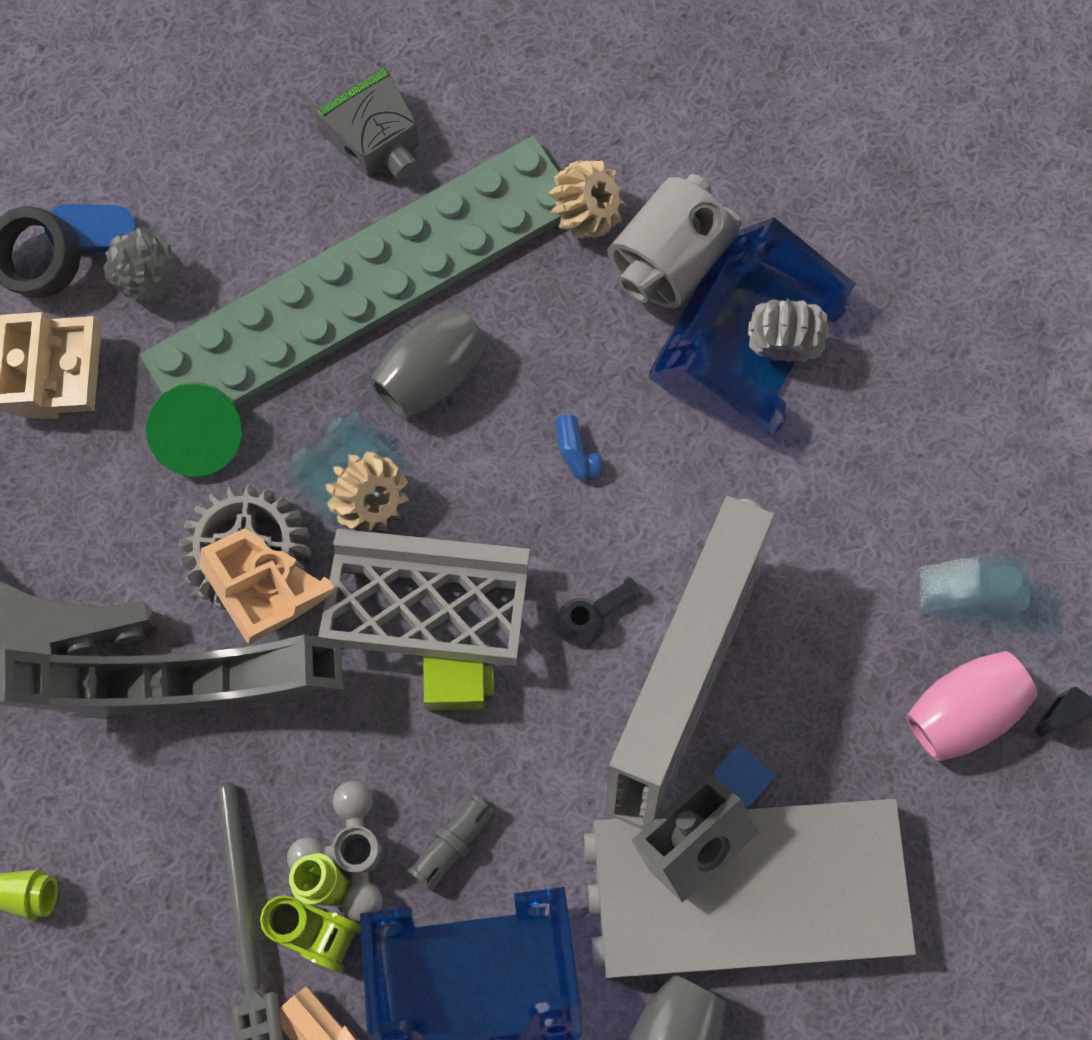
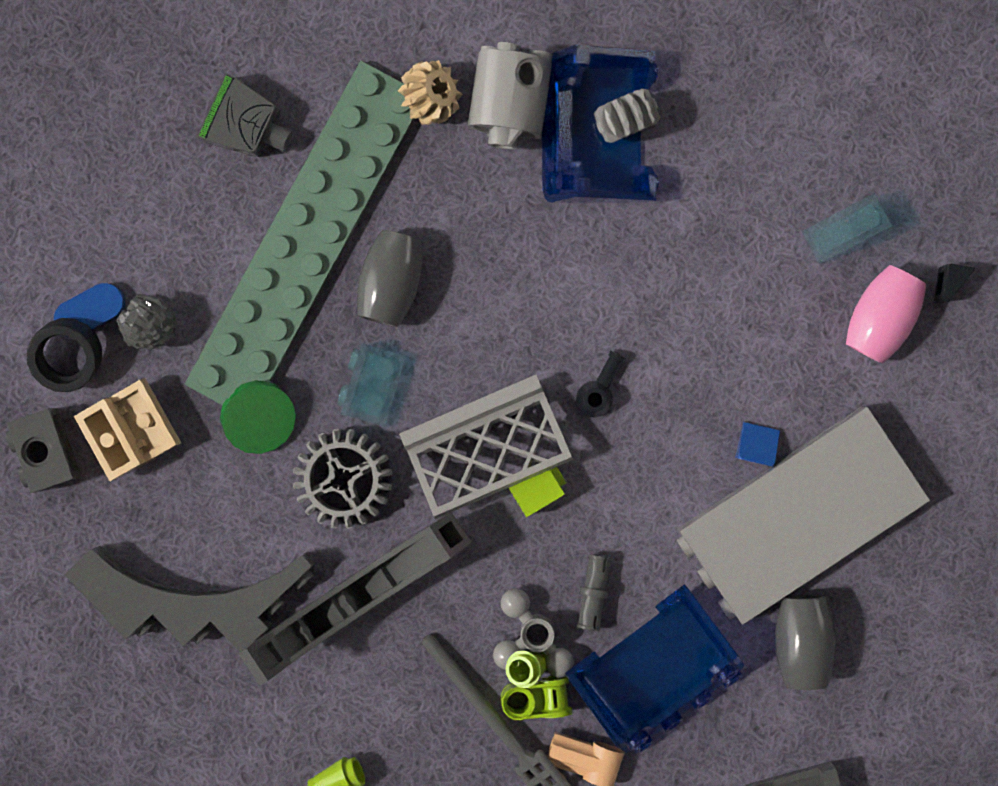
camera: 25 degrees left, 15 degrees up
(259, 584) = (373, 502): light nougat slope -> none
(367, 492) = (403, 396): tan gear -> none
(571, 449) = (522, 283): blue arm -> none
(687, 663) = (689, 398): light grey brick -> none
(695, 836) = (753, 510): dark grey brick -> none

